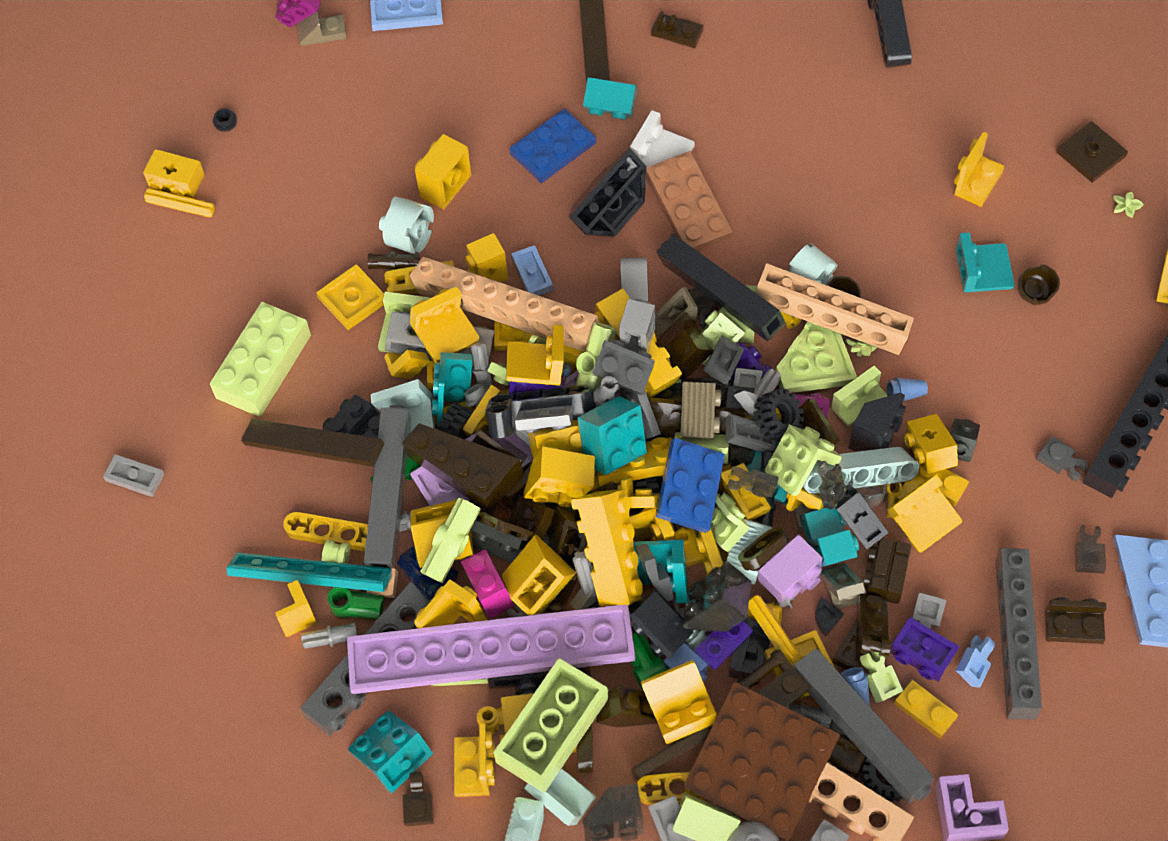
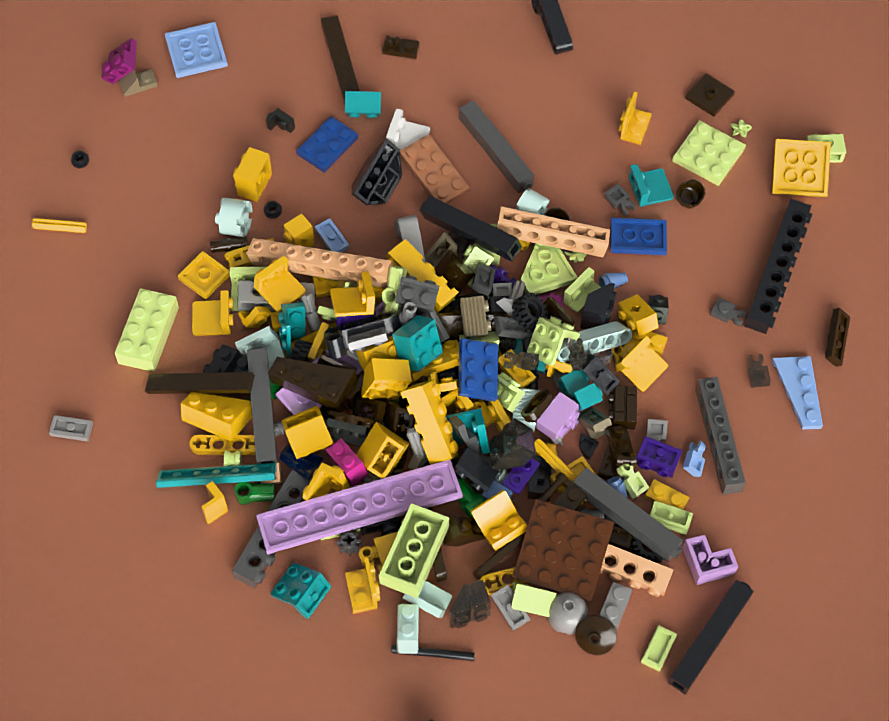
camera: 15 degrees left, 0 degrees up
(174, 173) = (51, 204): yellow brick -> none
(326, 487) = (216, 414): none -> yellow wedge
(328, 636) = (239, 518): light grey axle -> none
(352, 354) = (213, 316): none -> yellow bracket
(417, 805) = (329, 623): dark brown plate -> none
(450, 540) = (316, 435): yellowish green piece -> none
(461, 217) = (272, 205): none -> black plate
(463, 691) = (349, 549): none -> dark grey gear
(475, 395) = (310, 331): light grey plate -> none
(497, 103) = (281, 119): none -> pearl dark grey bracket
(637, 325) = (423, 262): light grey brick -> none
(779, 181) = (496, 146): none -> dark grey brick
(926, 739) = (671, 517): none -> yellowish green hinge
(936, 275) = (619, 198): none -> dark grey plate
(954, 333) = (638, 236): none -> blue plate
(1075, 232) = (709, 153): none -> yellowish green plate
(1075, 621) = (756, 421): dark brown bracket -> none

